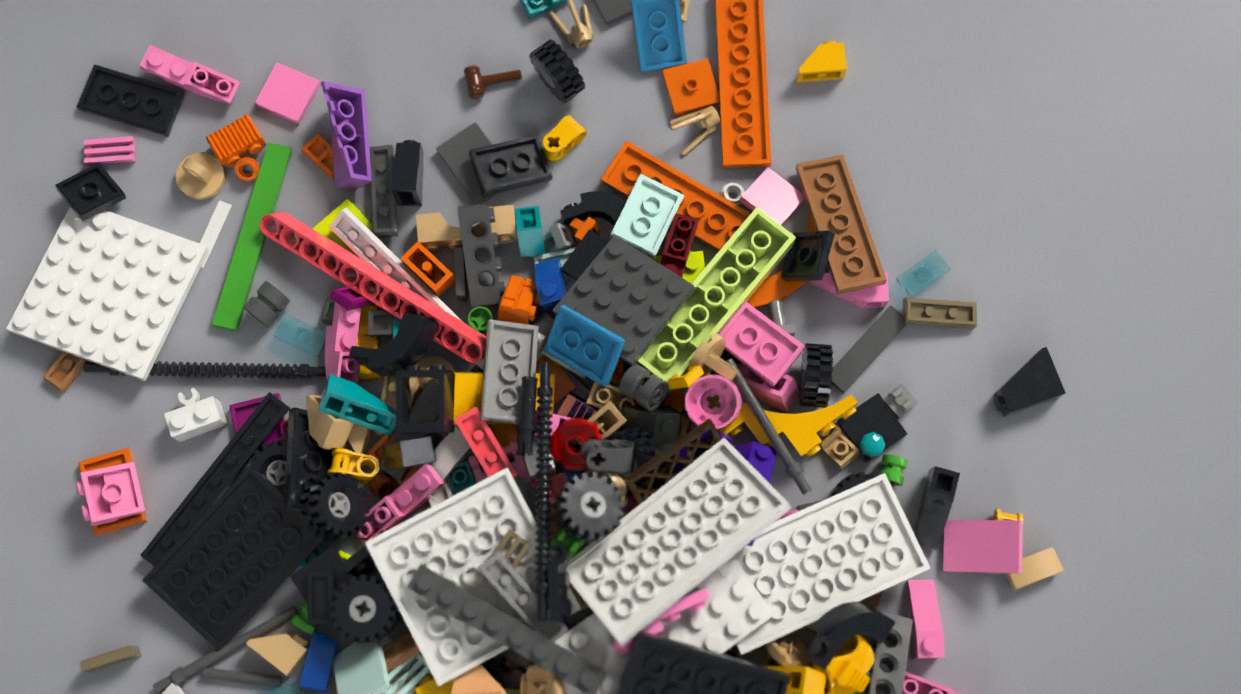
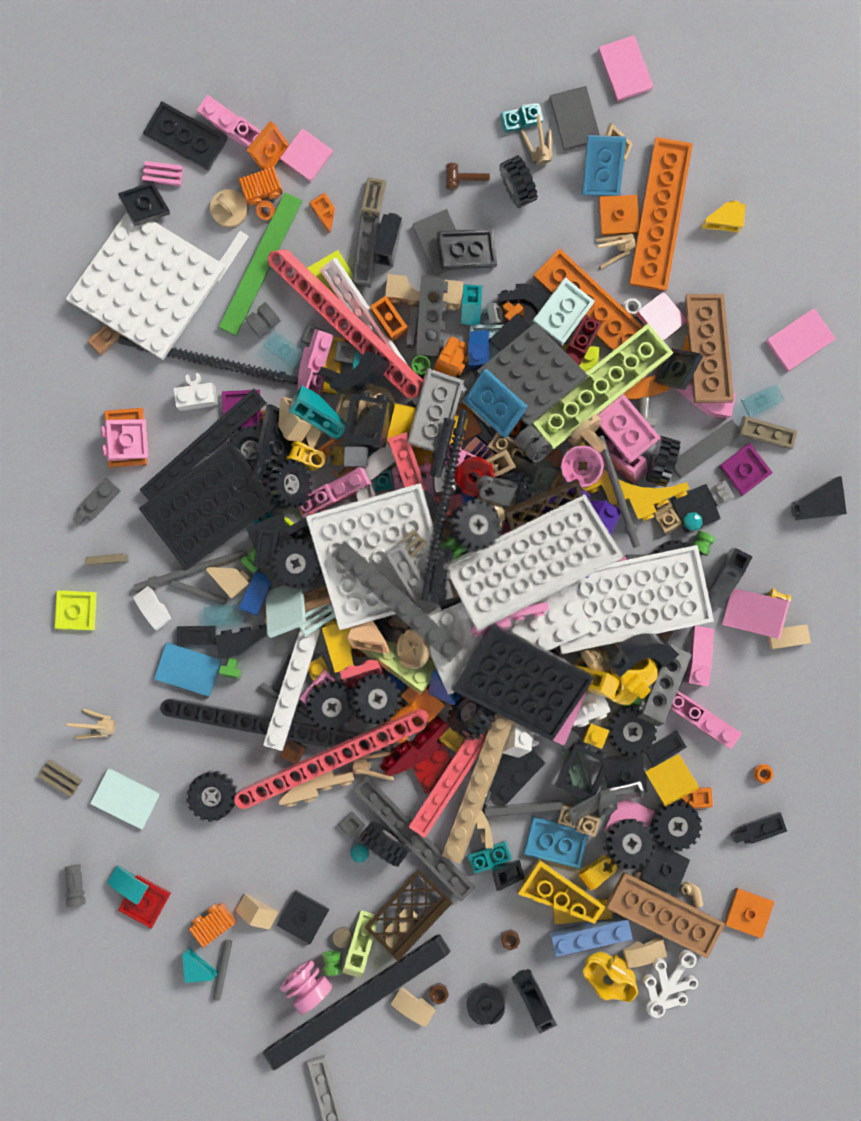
camera: 10 degrees right, 10 degrees up
(85, 584) = (96, 501): none -> dark grey hinge
(236, 91) = (268, 147): none -> orange plate
(348, 135) = (348, 200): medium lavender wedge -> none
(349, 298) = (325, 329): magenta tile -> none
(380, 142) = (370, 210): none -> dark tan tile
(382, 485) = (324, 475): reddish brown tile -> none
(565, 136) = (513, 235): yellow piece -> none
(687, 379) = (566, 445): yellow tile -> none
(923, 365) = (745, 469): none -> magenta tile
(952, 190) = (800, 339): none -> bright pink tile

